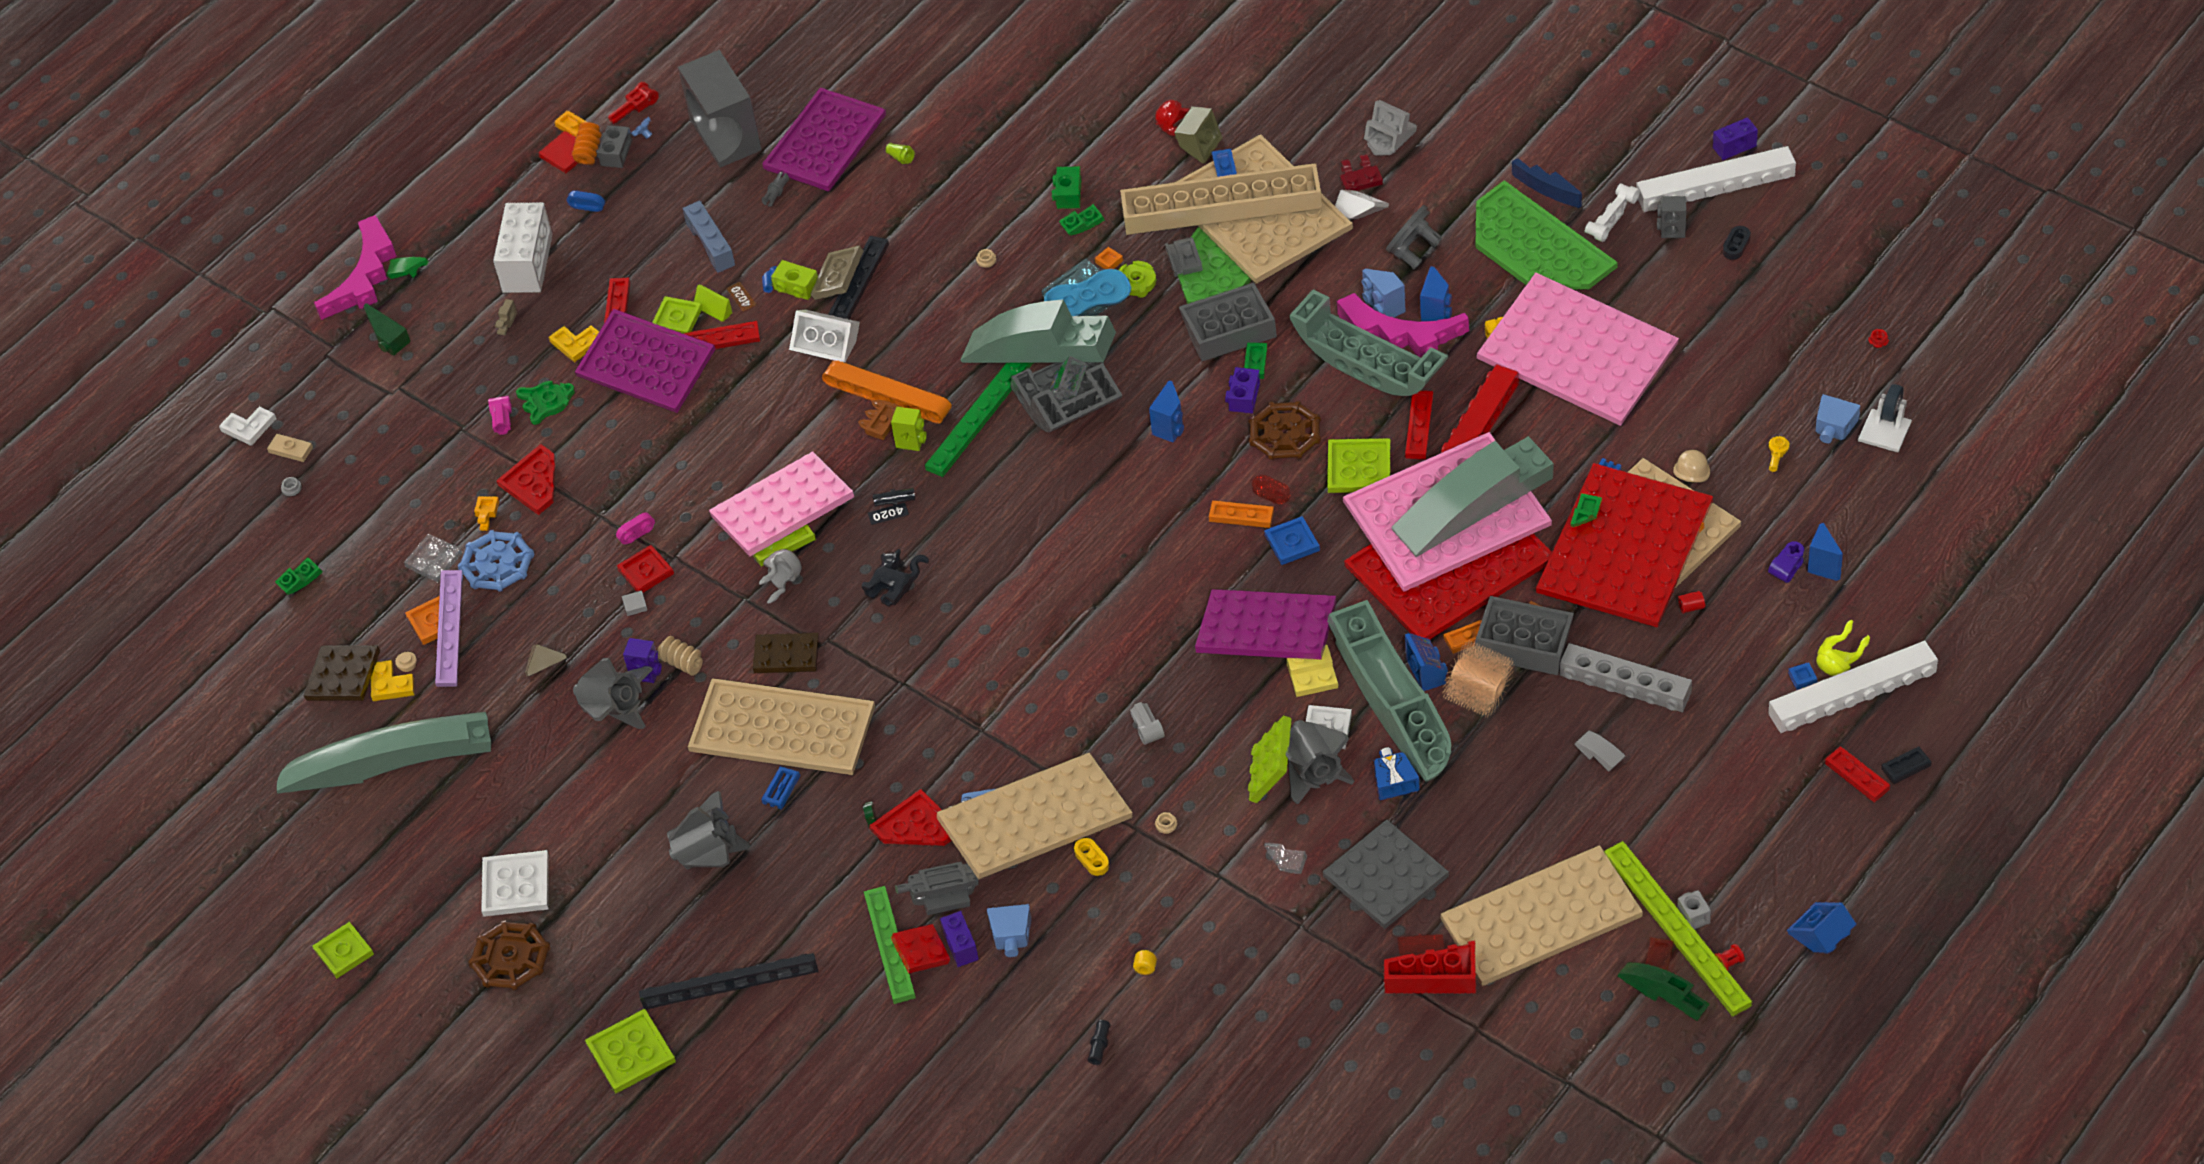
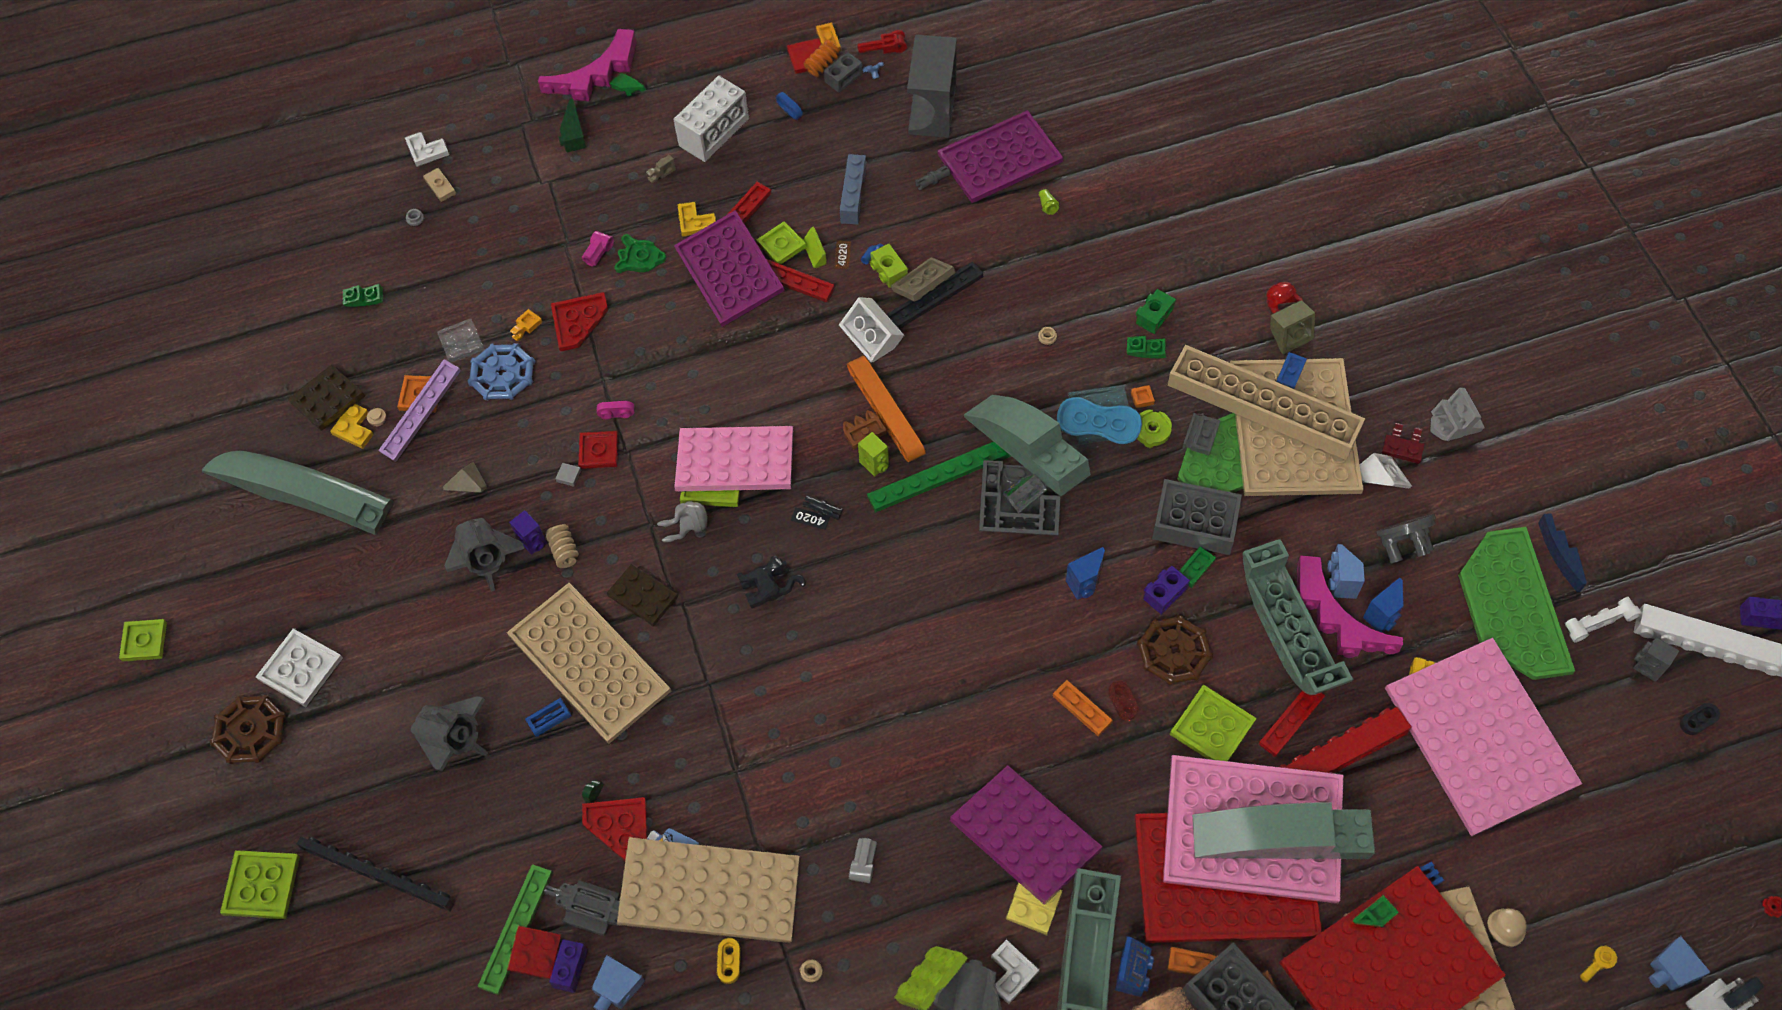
camera: 30 degrees right, 10 degrees up
(1292, 540) = (1106, 762): blue plate -> none

